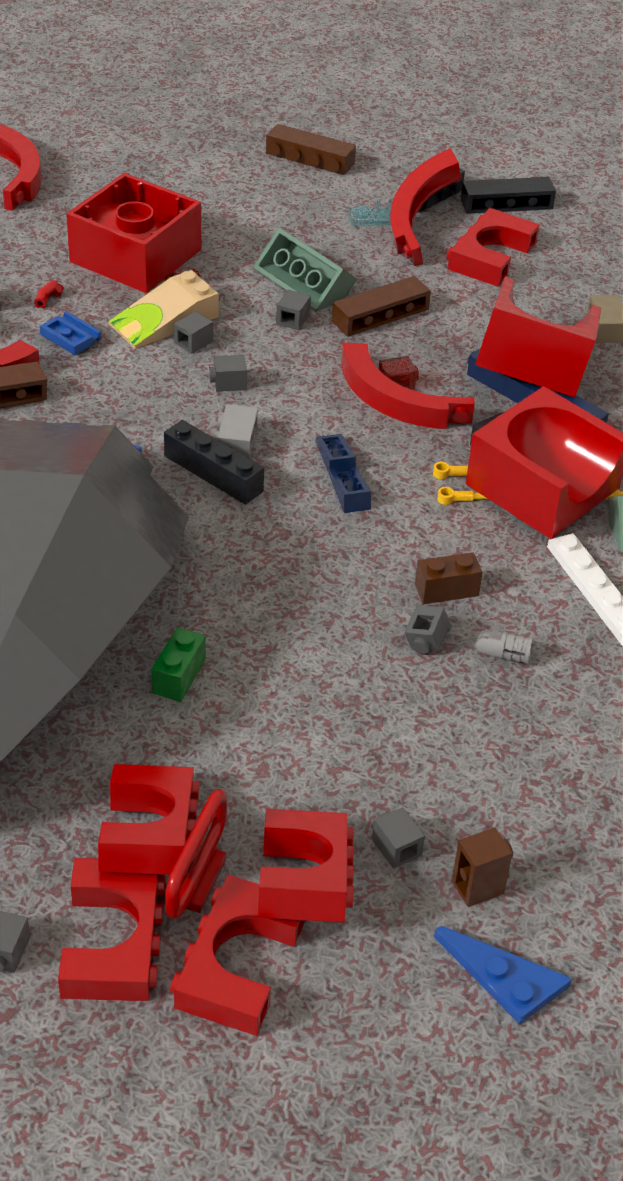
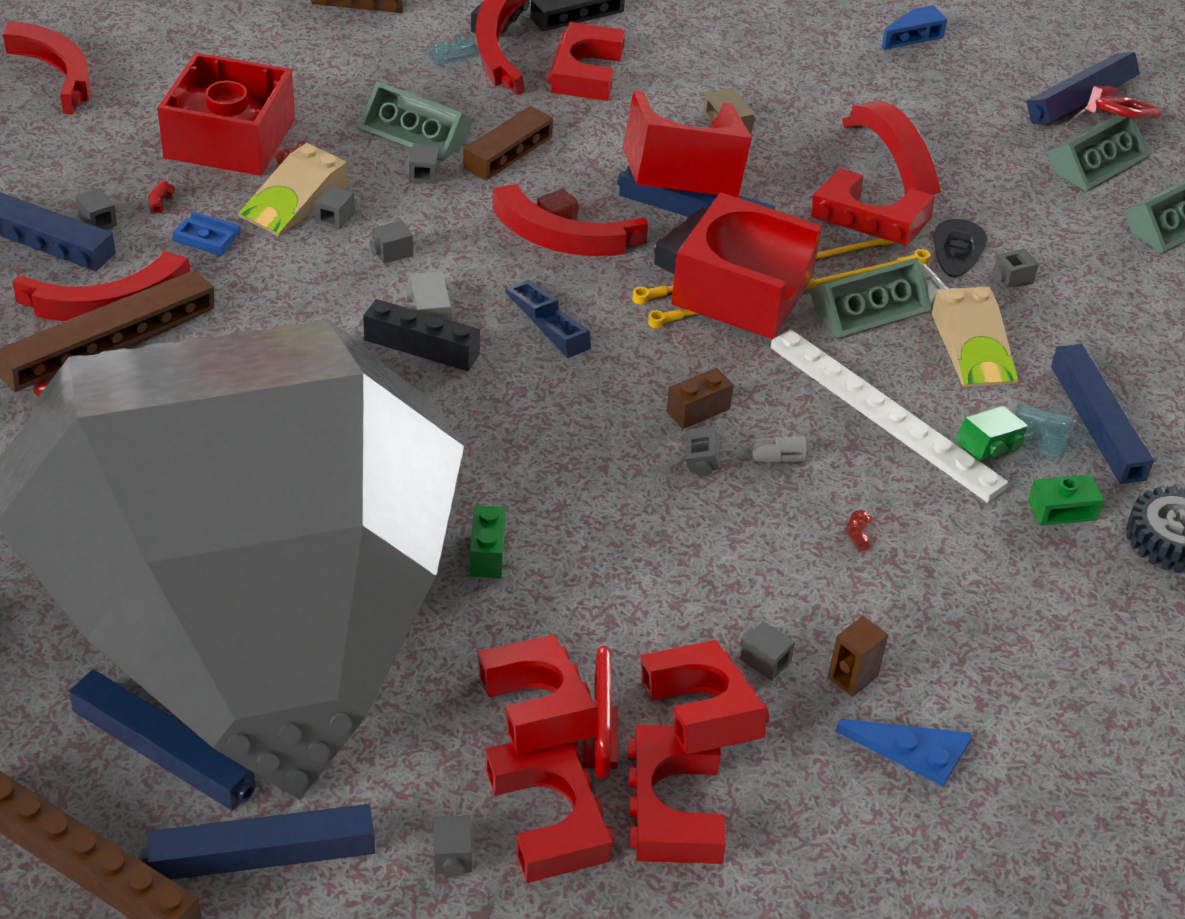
camera: 20 degrees left, 0 degrees up
(553, 734) = (855, 529): none -> clear red arm

